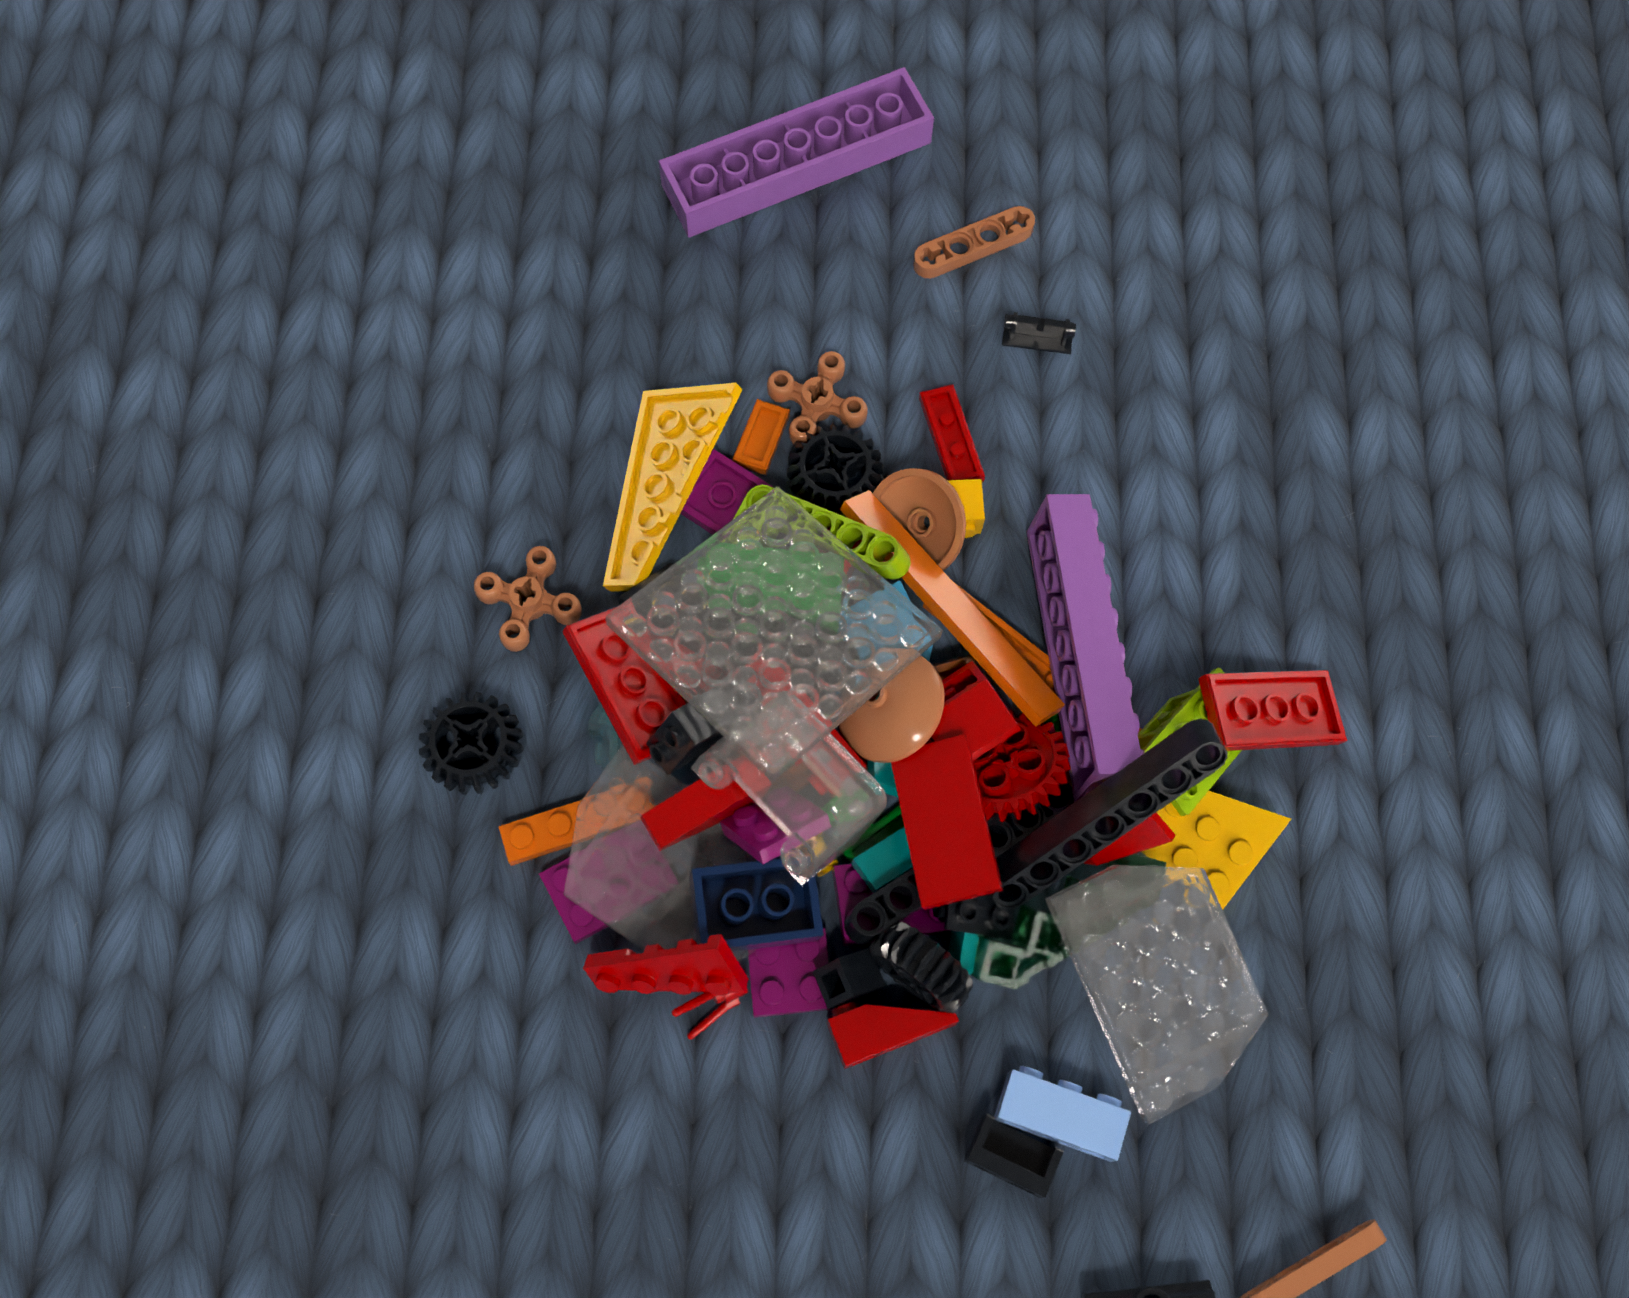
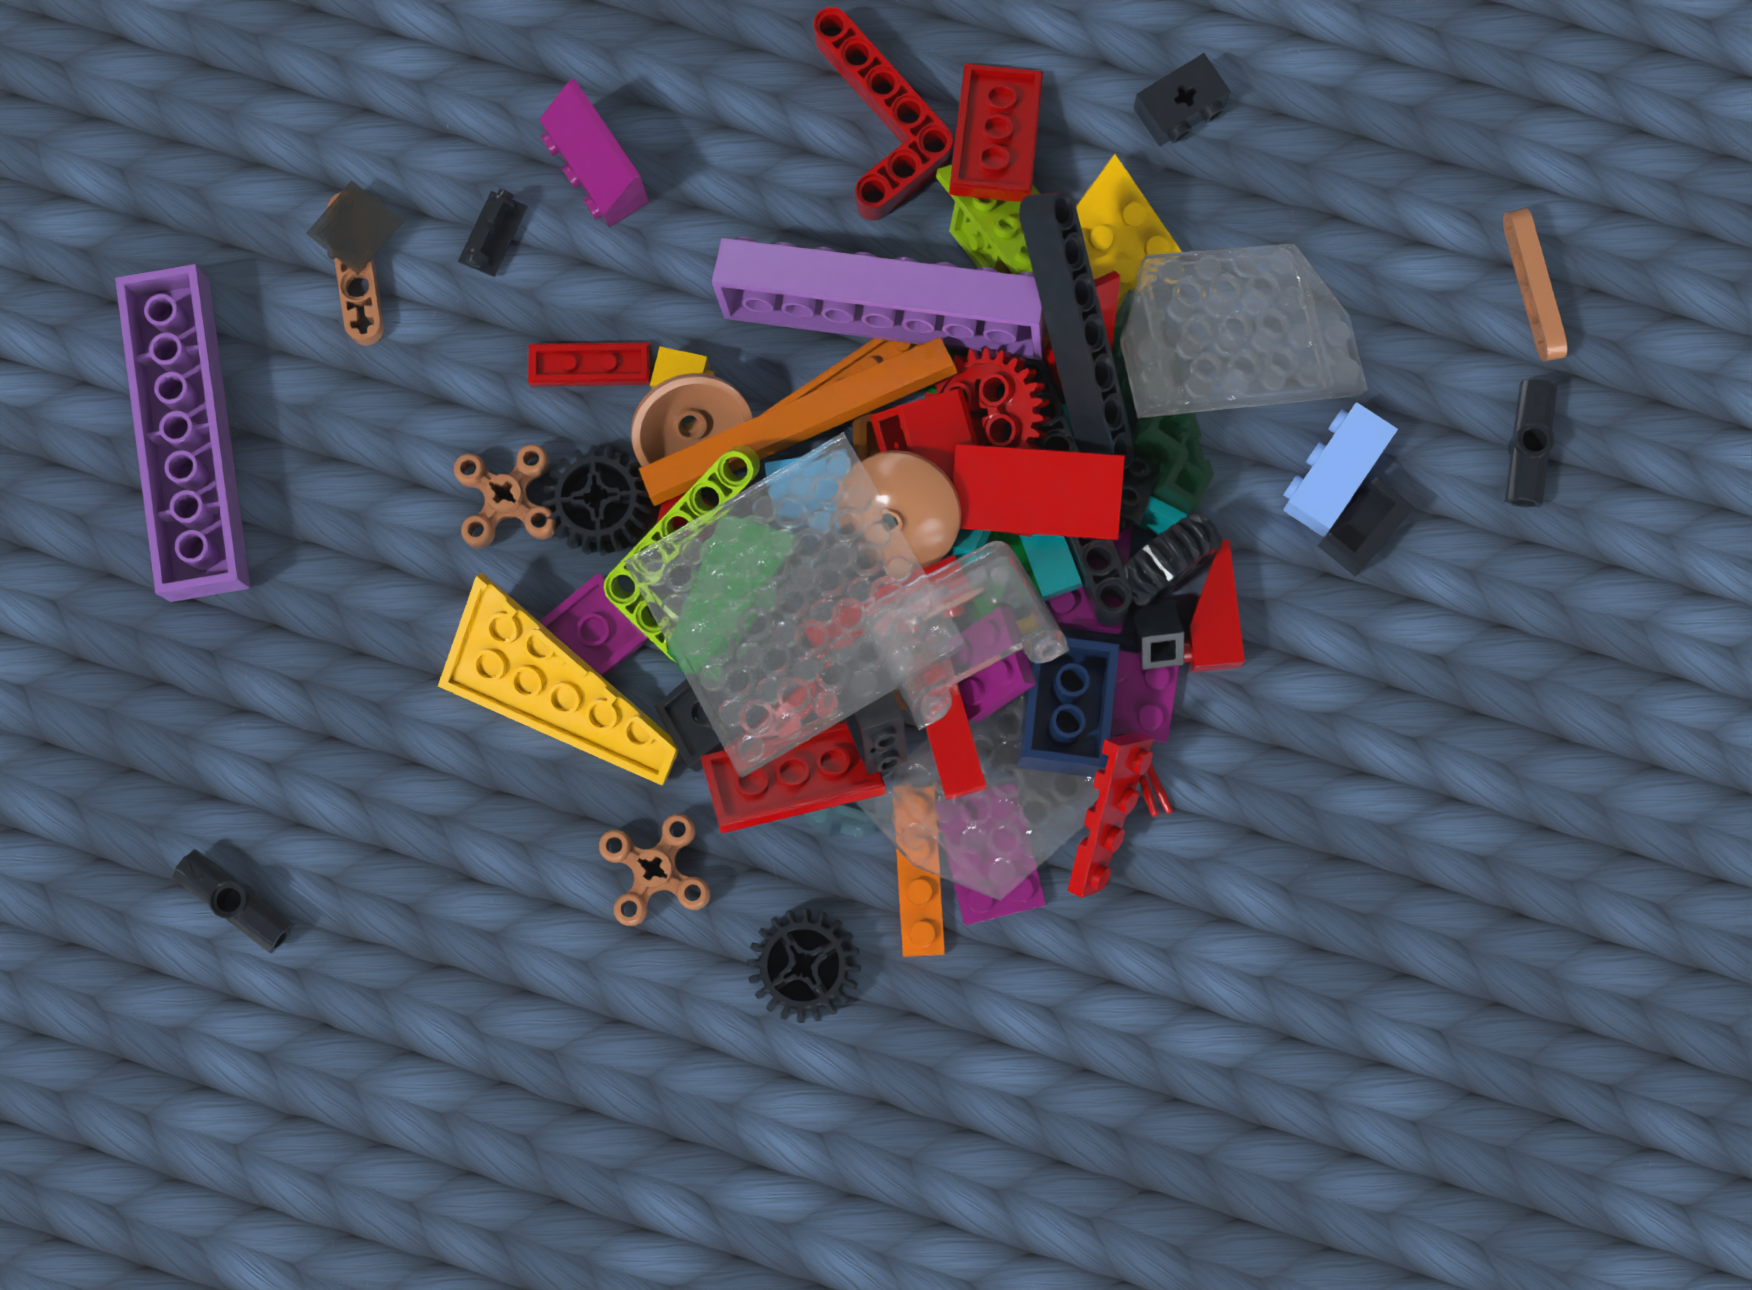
camera: 65 degrees left, 10 degrees up
(422, 304) = (213, 885): none -> black piece
(761, 437) = (529, 570): orange tile -> none
(1006, 229) = (354, 227): none -> clear smoke piece
(1129, 387) = (592, 156): none -> magenta slope
(1264, 616) = (888, 108): none -> red beam
(1386, 878) = (1192, 82): none -> black brick

